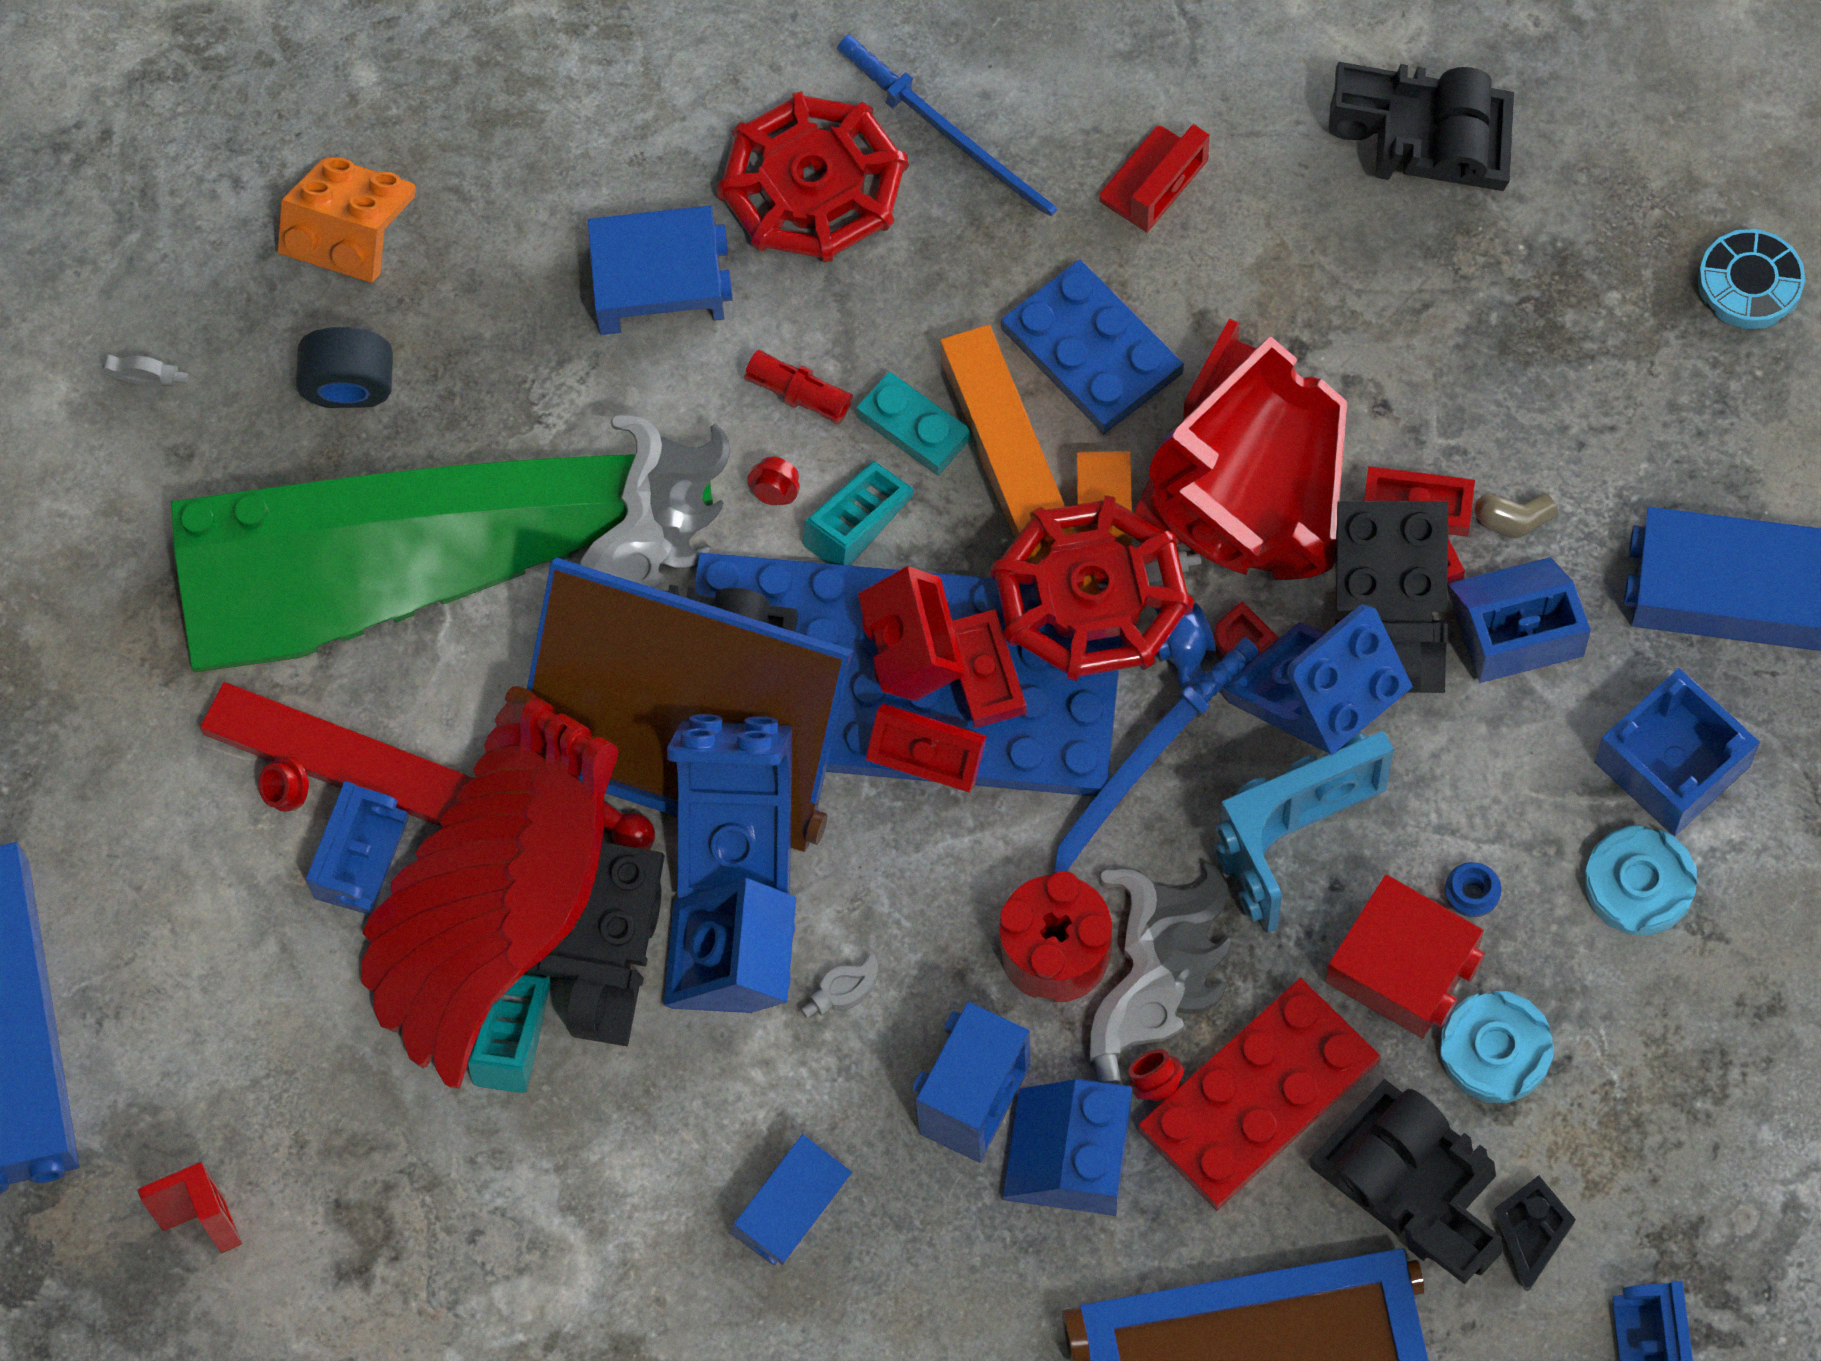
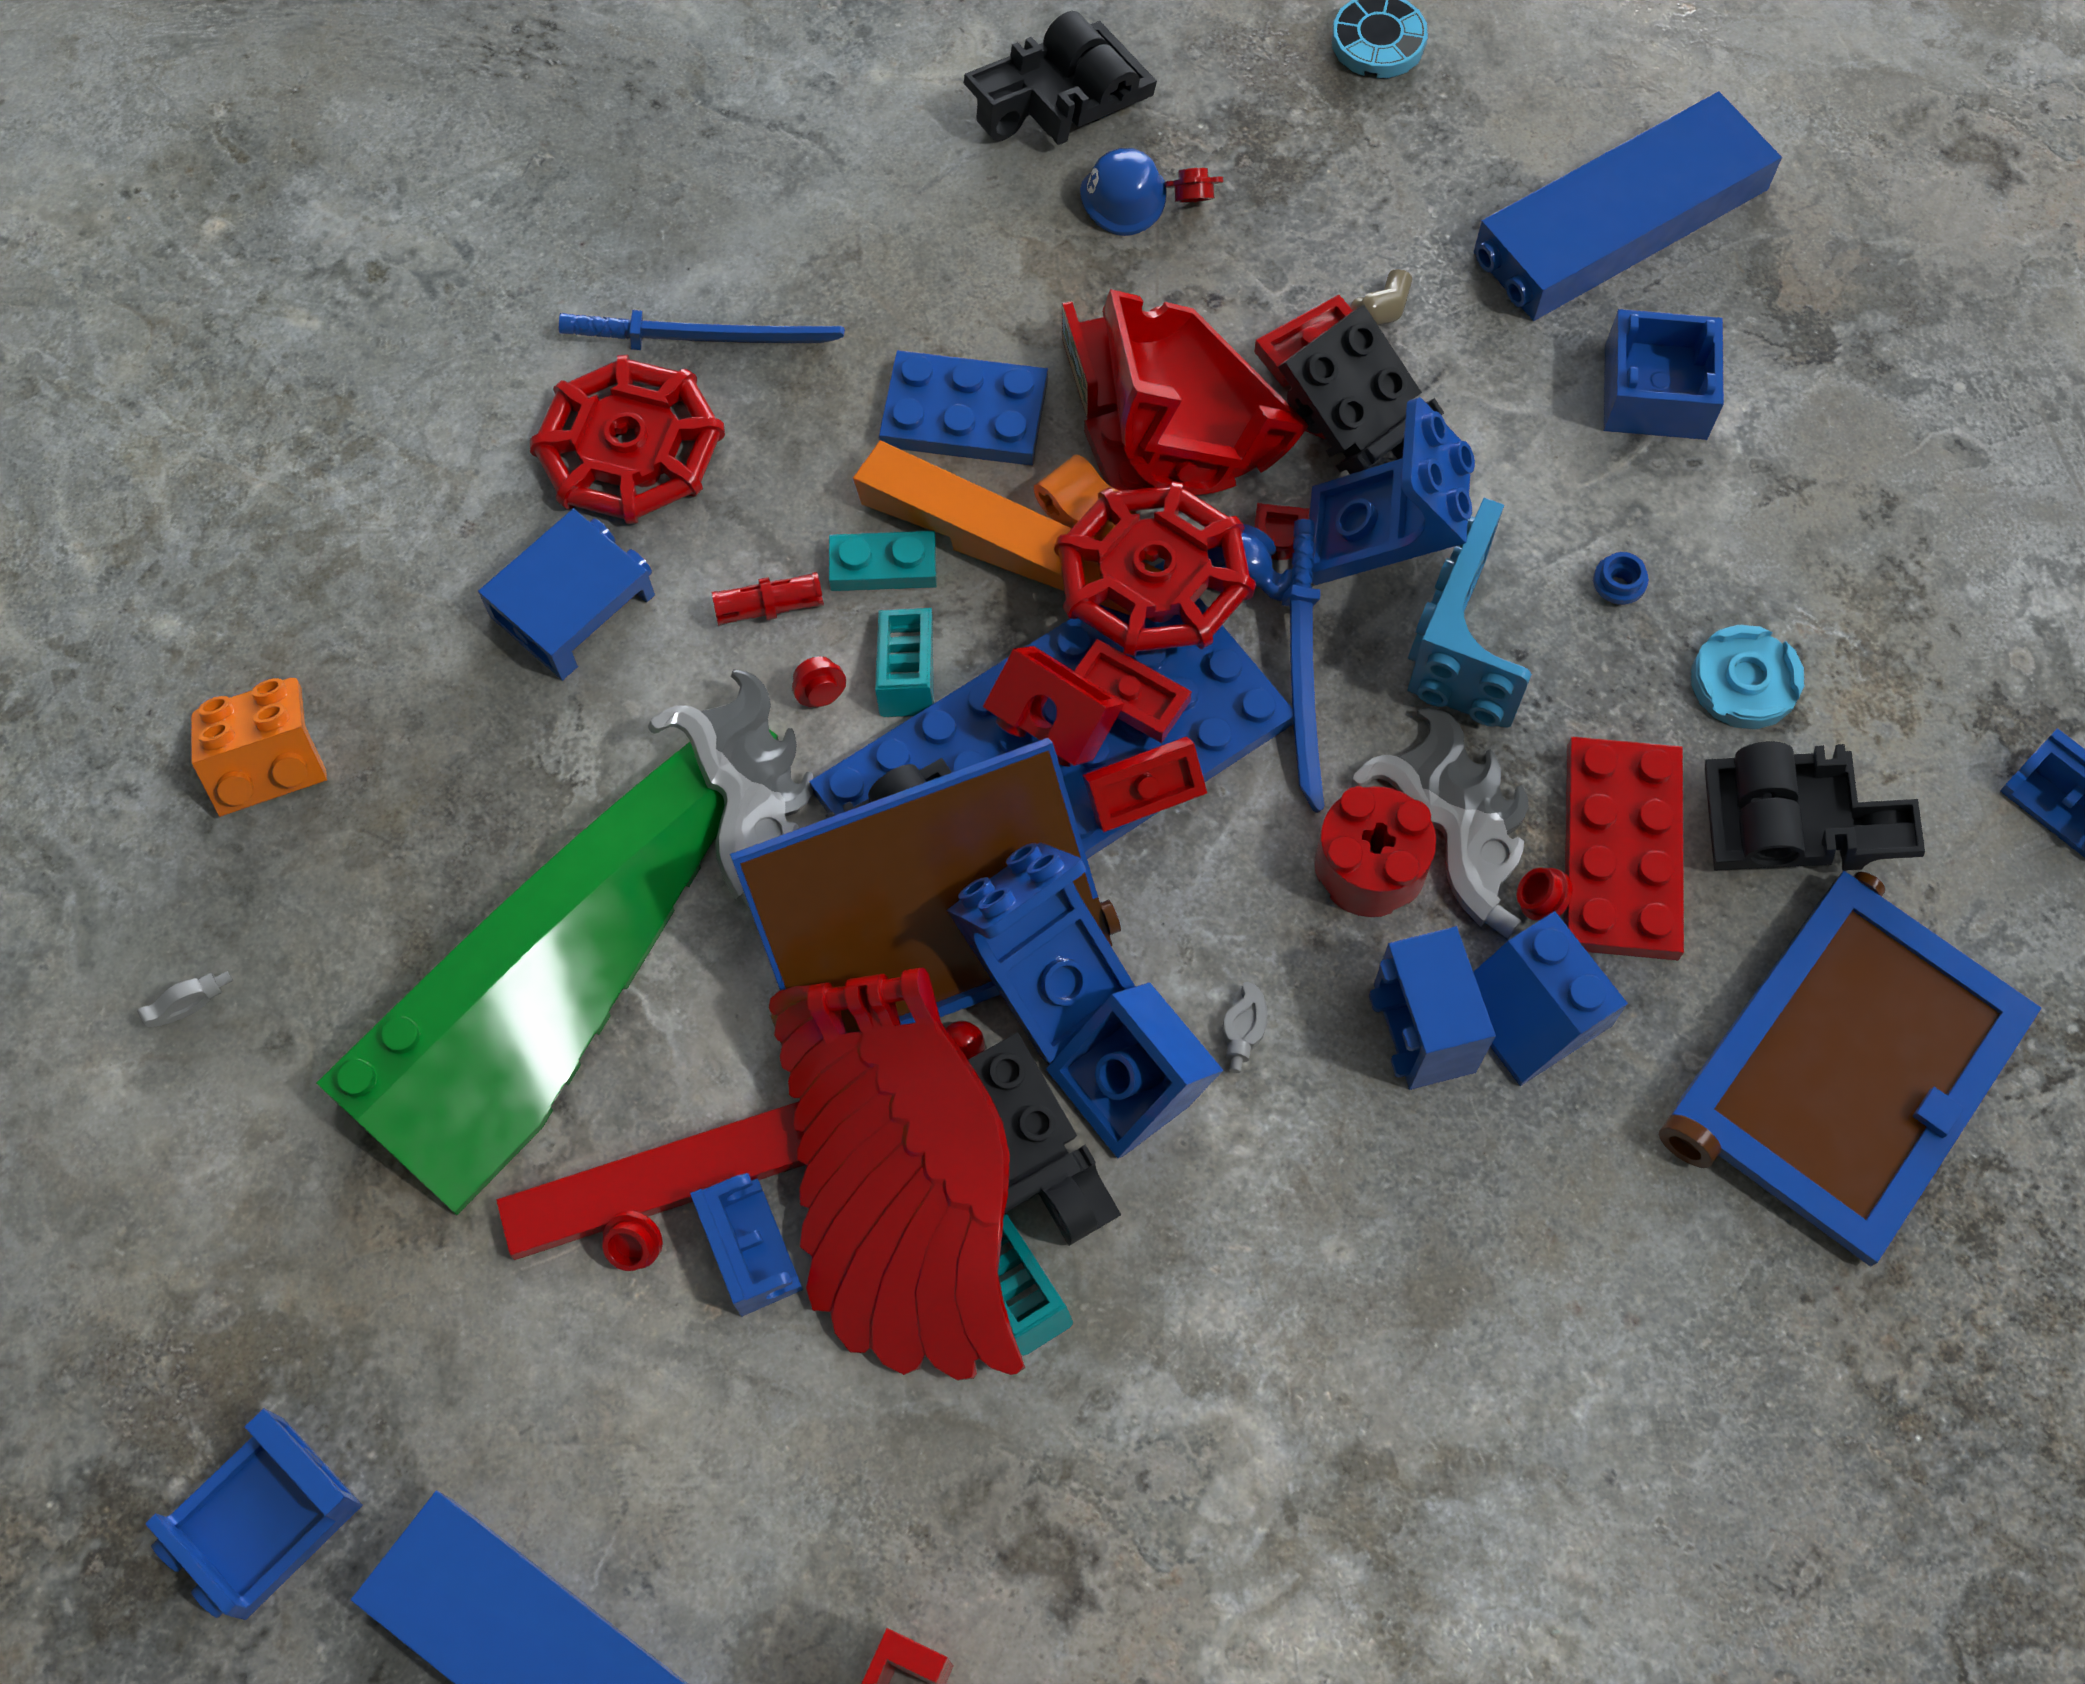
camera: 45 degrees left, 0 degrees up
(344, 368) = (370, 860): black wheel -> none
(790, 1201) = (1374, 1226): blue hinge -> none
(1156, 175) = (892, 255): red panel -> none
(1391, 260) = (1124, 192): none -> blue helmet
(1406, 957) = (1635, 659): red brick -> none
(1451, 296) = (1193, 185): none -> red plate
(1520, 618) = (1470, 360): blue slope -> none
(1533, 1228) = (1905, 774): black piece -> none
(1640, 880) = (1720, 484): medium azure tile -> none

